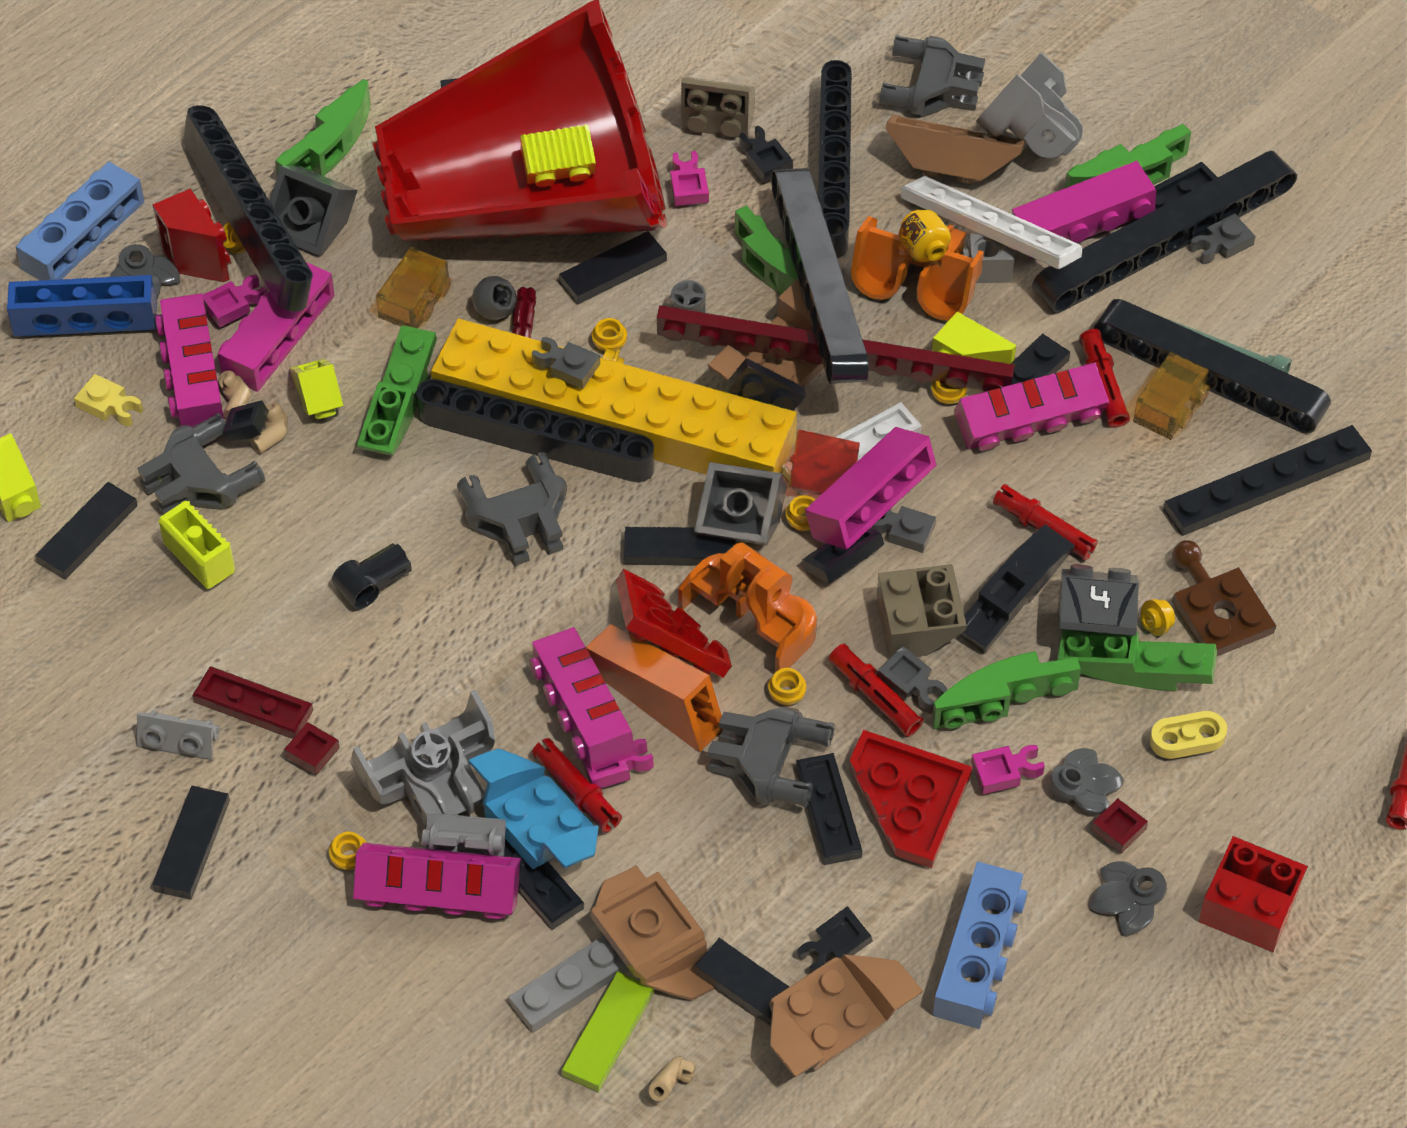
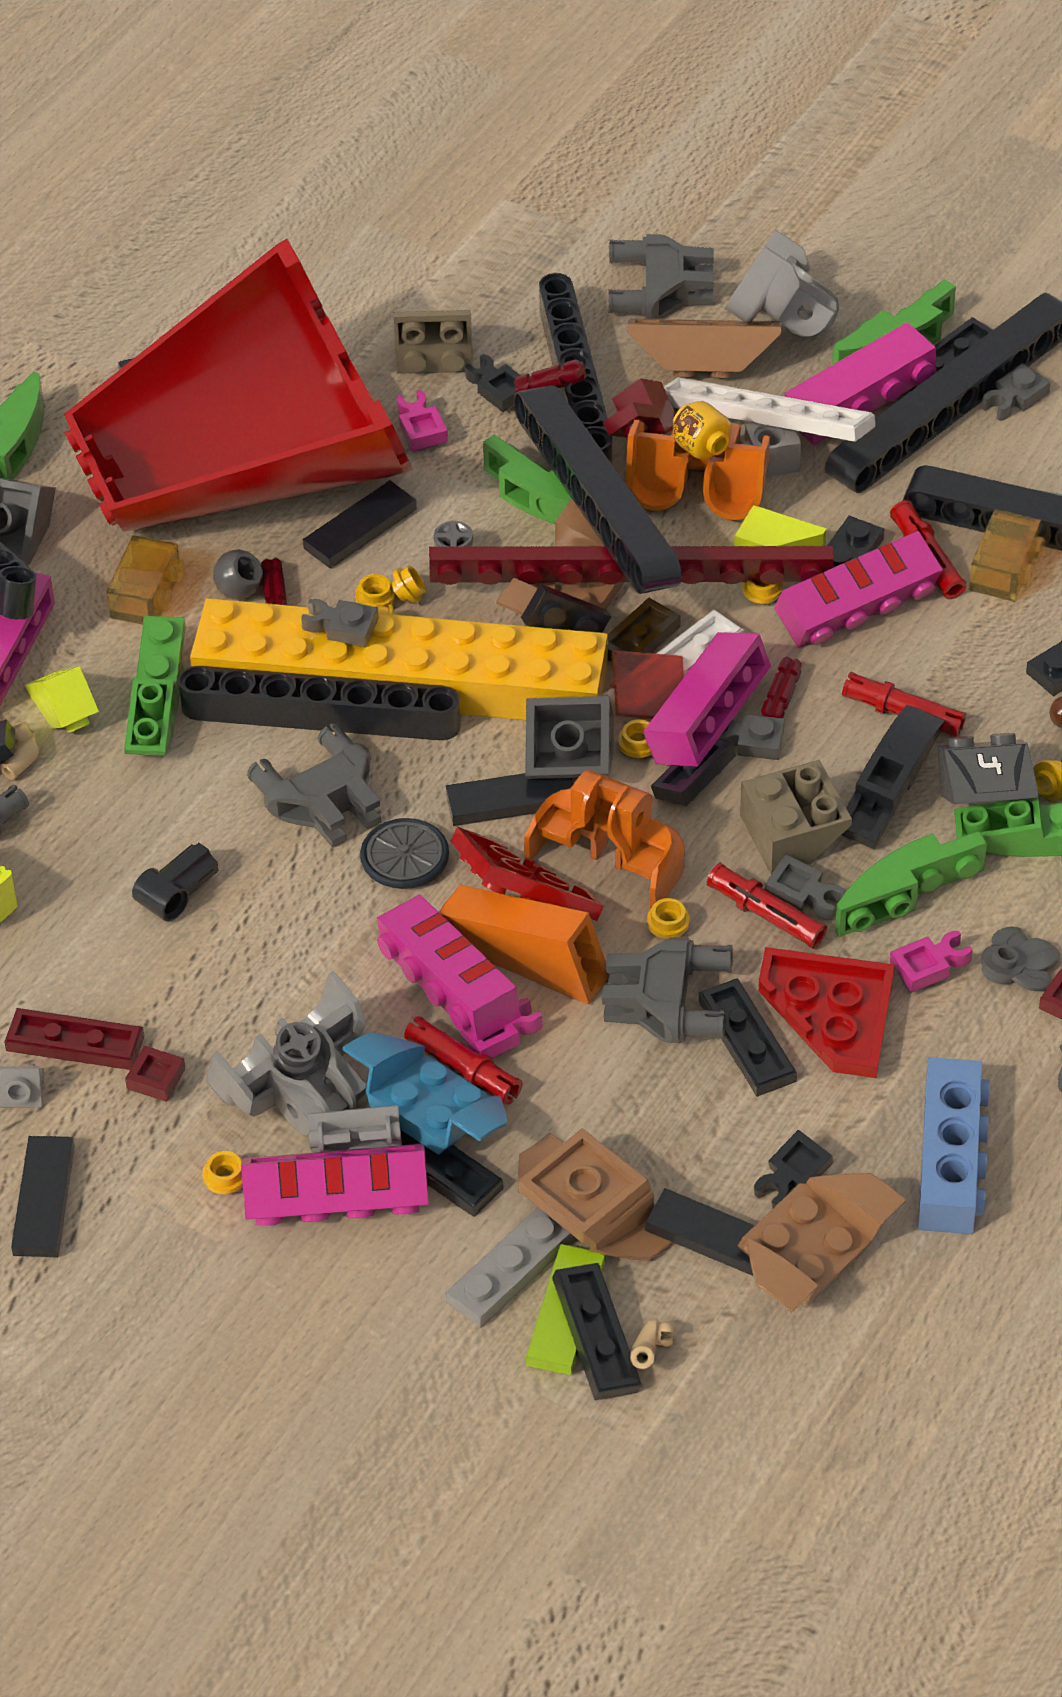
camera: 10 degrees left, 5 degrees down
(558, 155) = (272, 416): neon yellow brick -> none
(575, 583) = (404, 853): none -> dark grey wheel
(627, 1058) = (596, 1331): none -> black tile
(639, 332) = (408, 584): none -> yellow plate
(809, 159) = (571, 371): none -> dark red axle
(832, 411) = (643, 629): none -> dark brown plate
(883, 200) = (645, 402): none -> dark red brick
(941, 487) = (782, 688): none -> dark red axle

